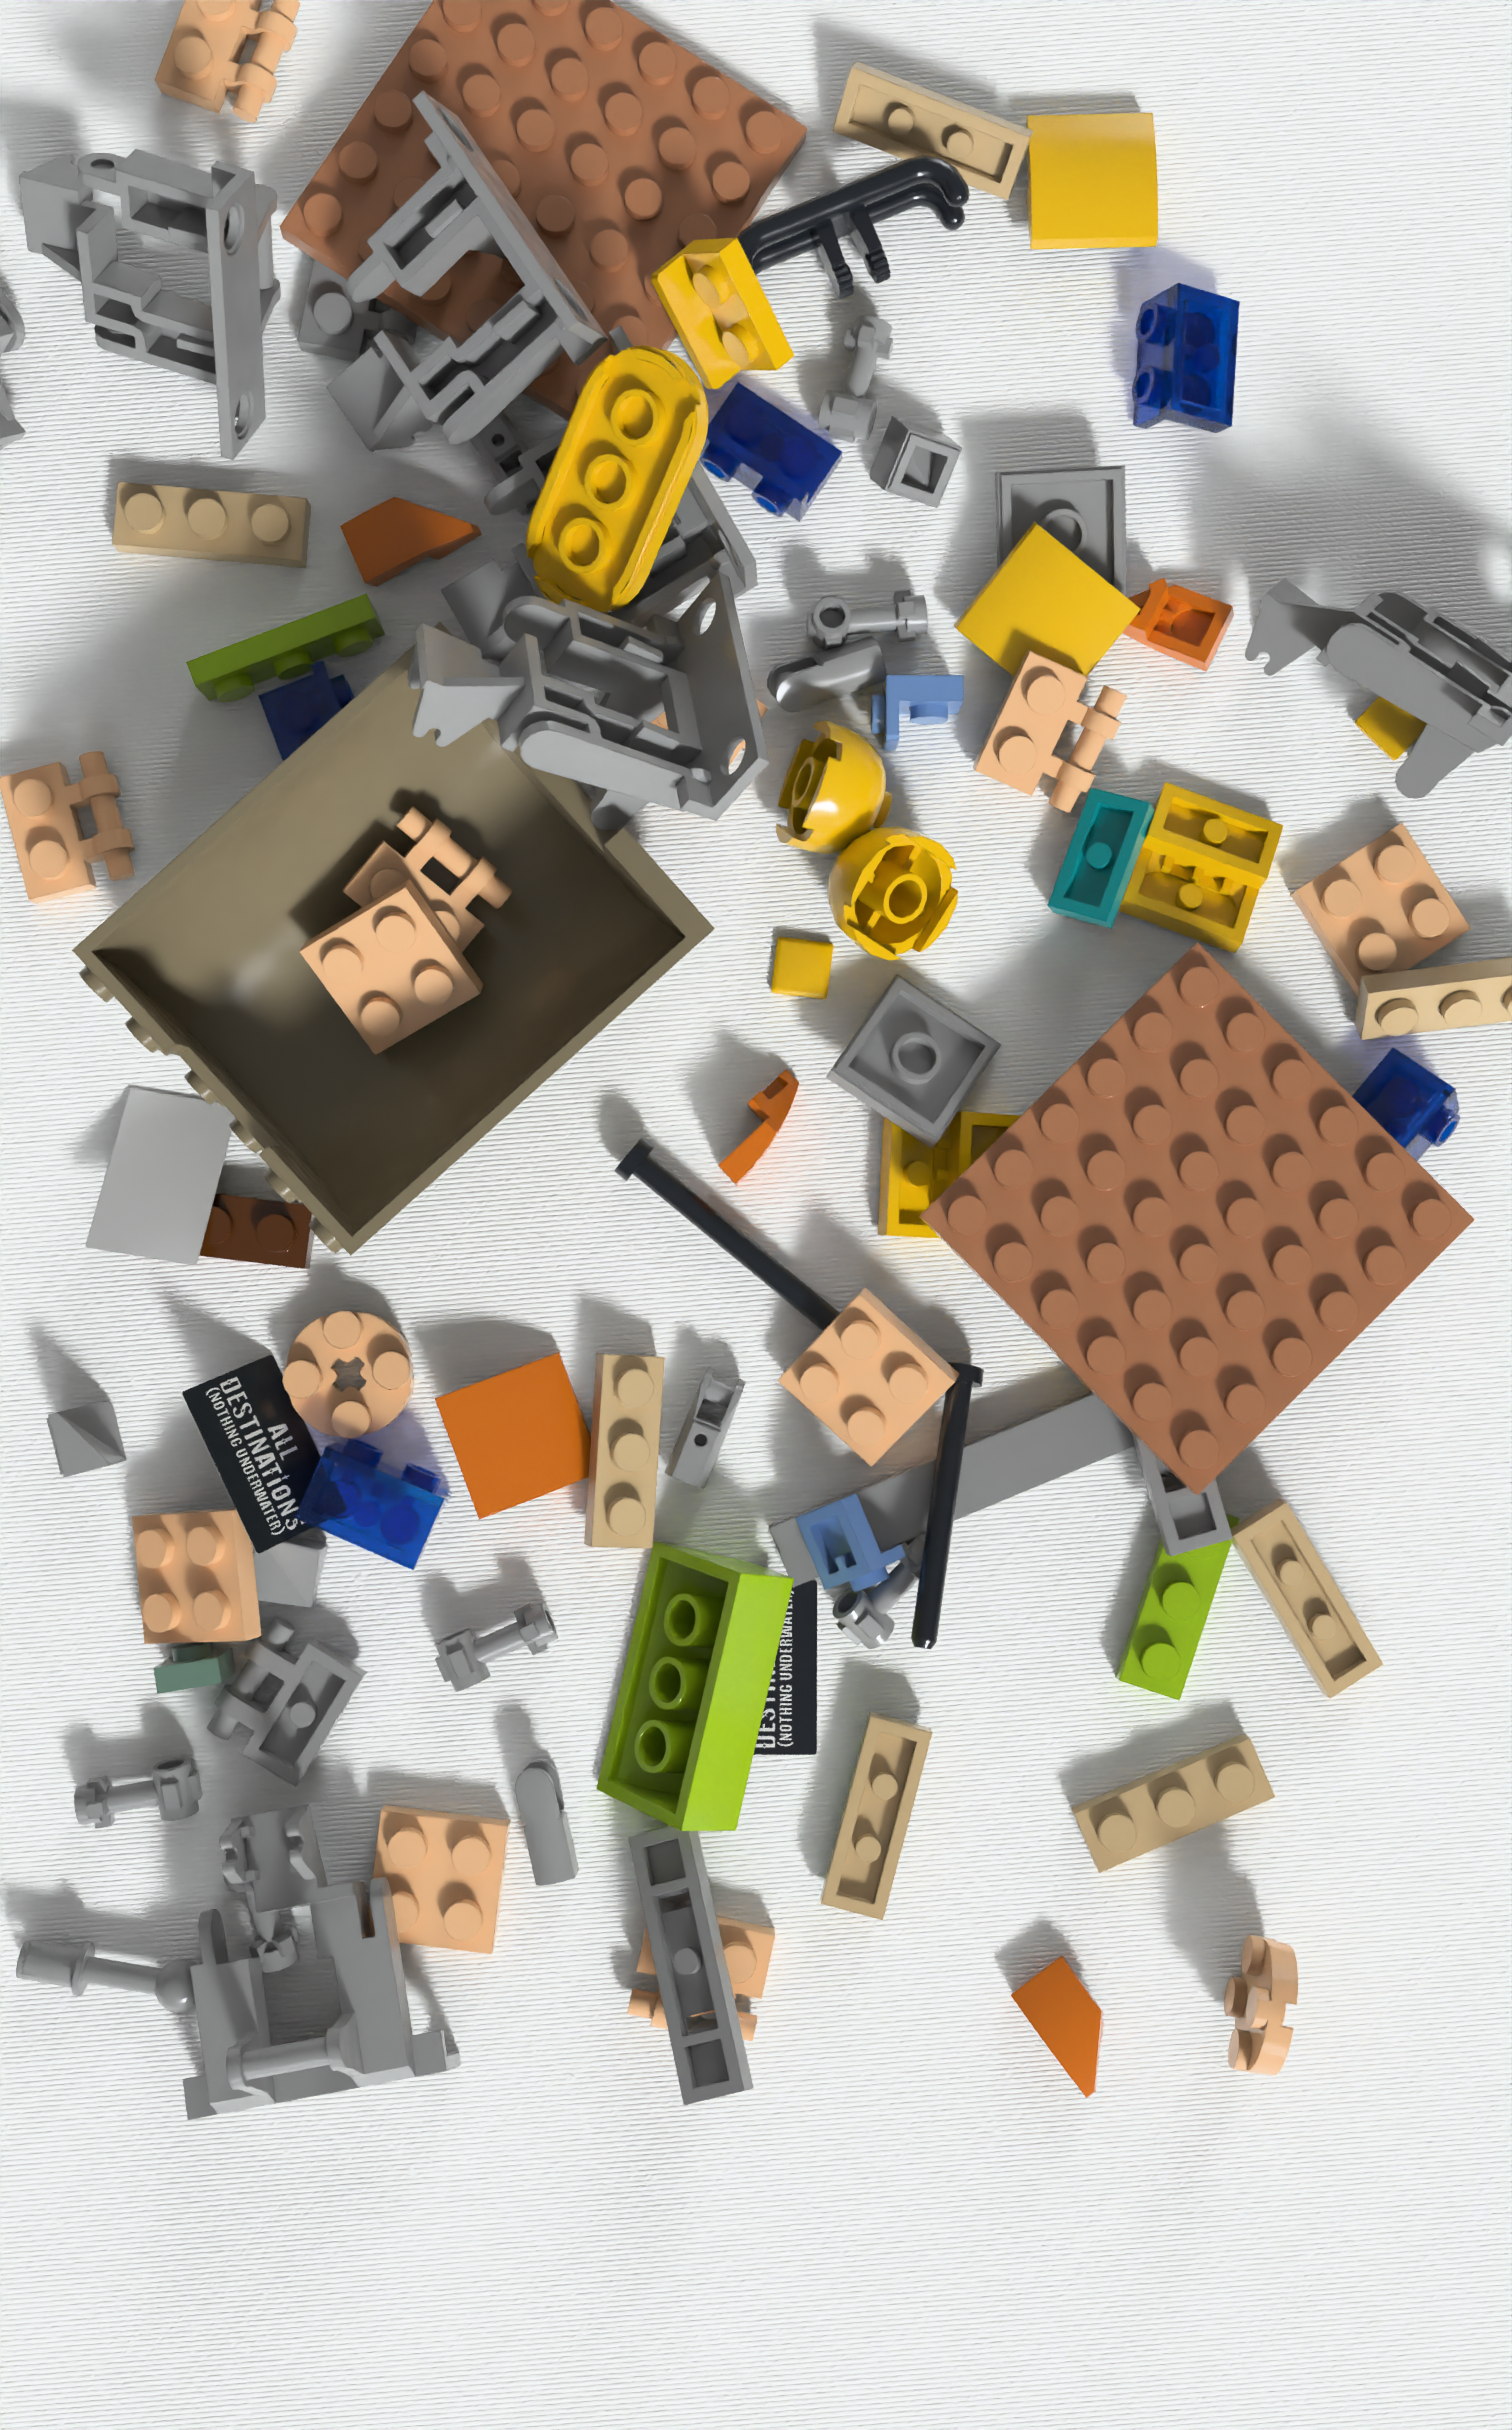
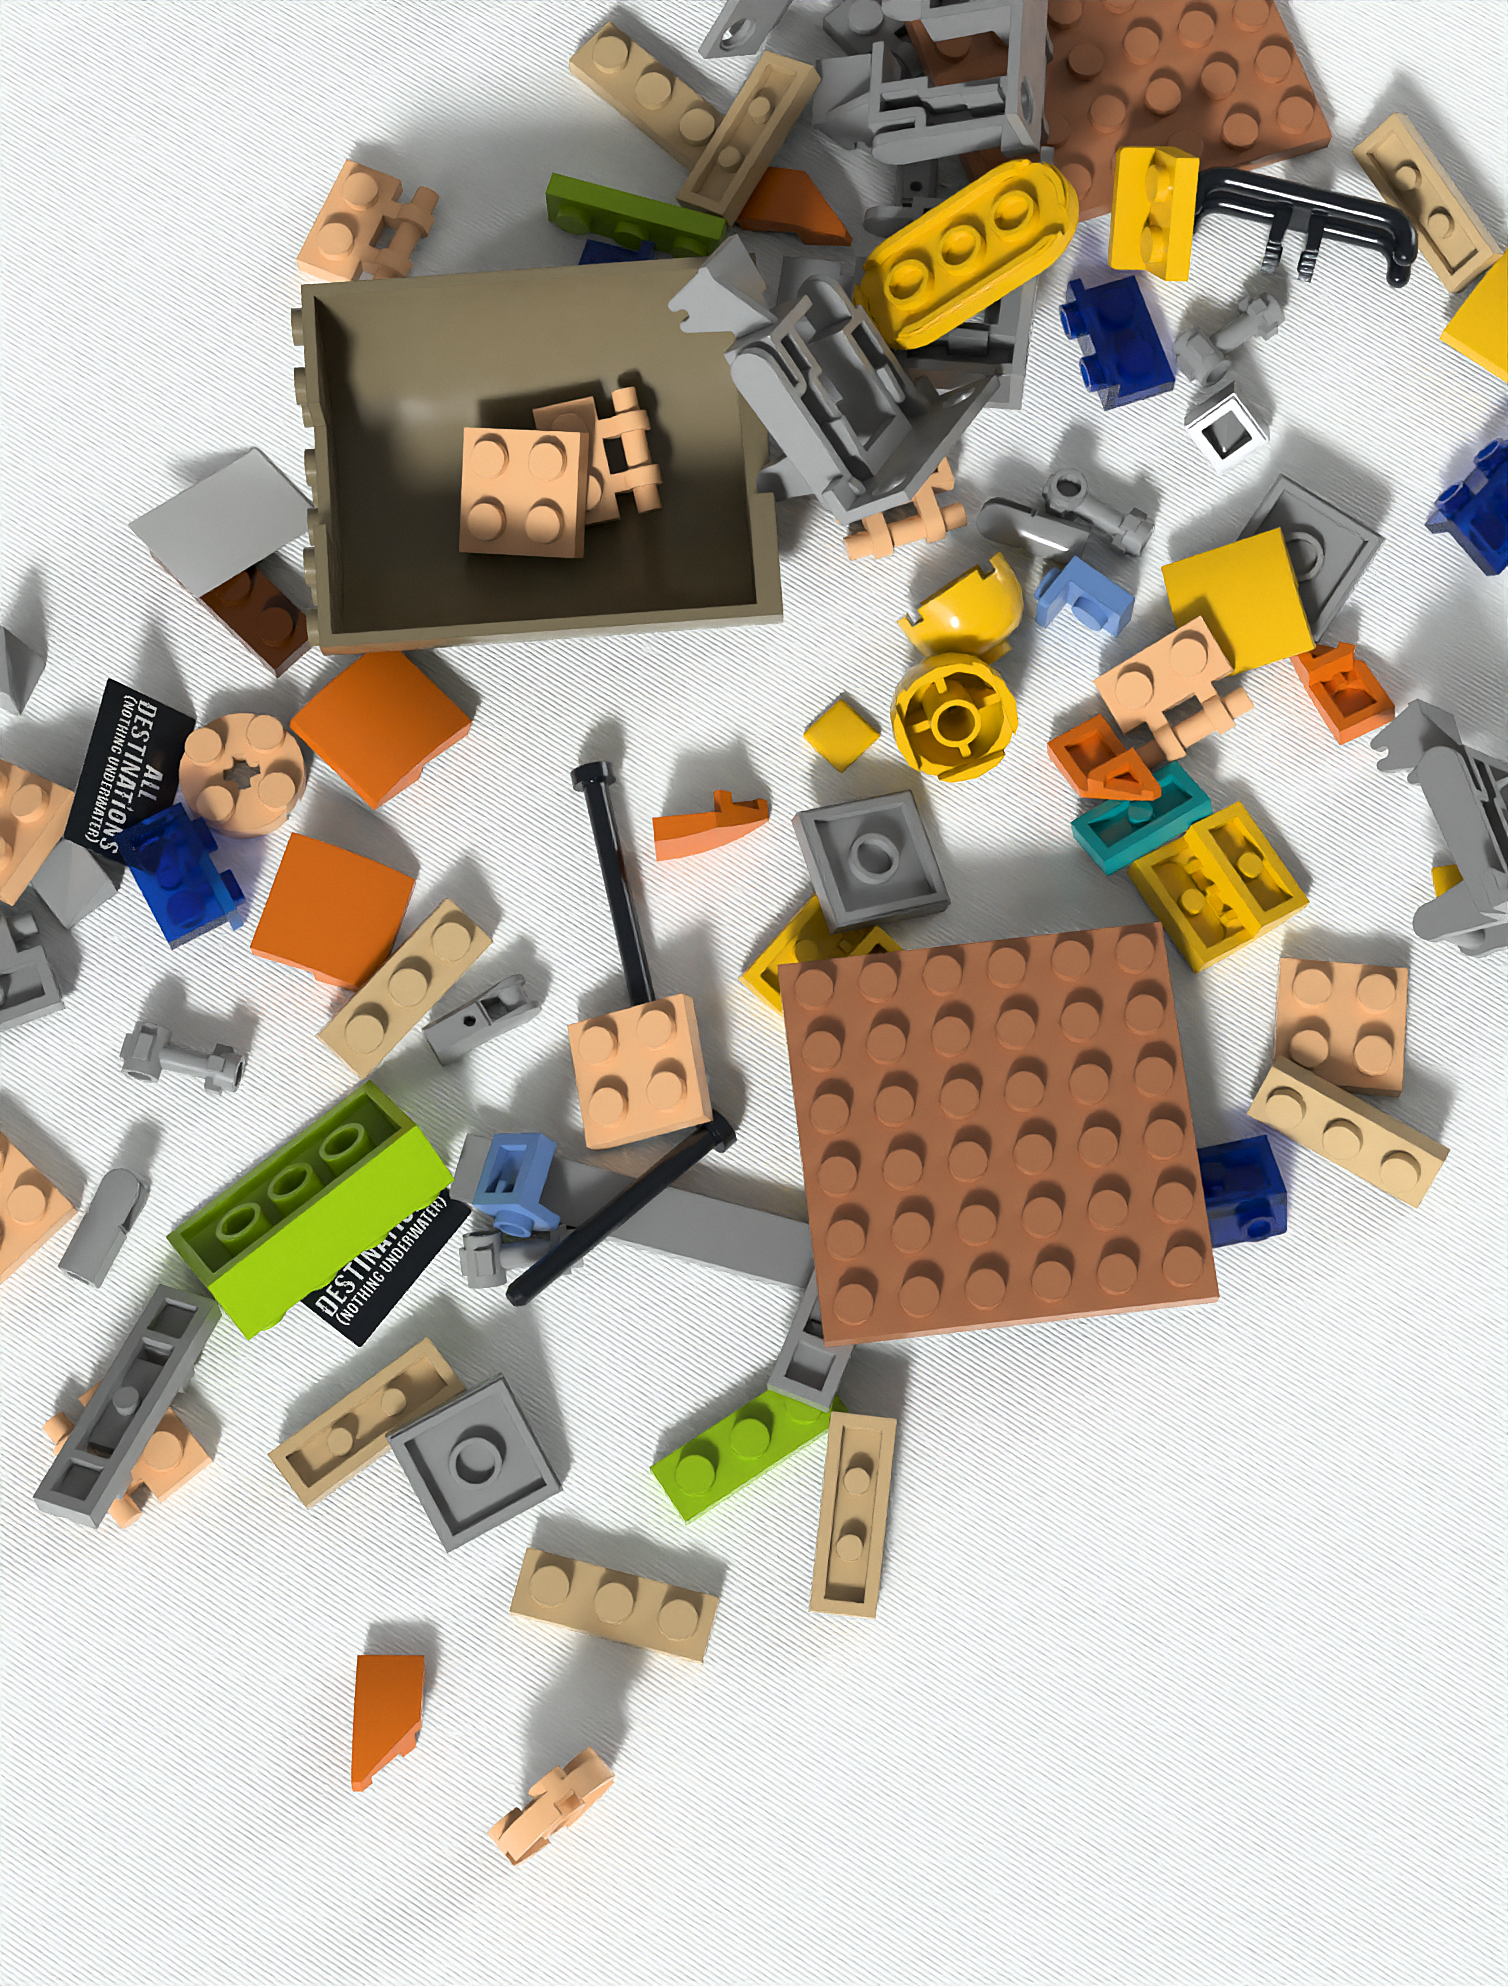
camera: 45 degrees right, 15 degrees down
(324, 502) = (749, 137): none -> tan plate
(433, 1254) = (380, 725): none -> orange slope
(983, 1783) = (474, 1462): none -> light grey plate
(1034, 837) = (1100, 765): none -> orange slope

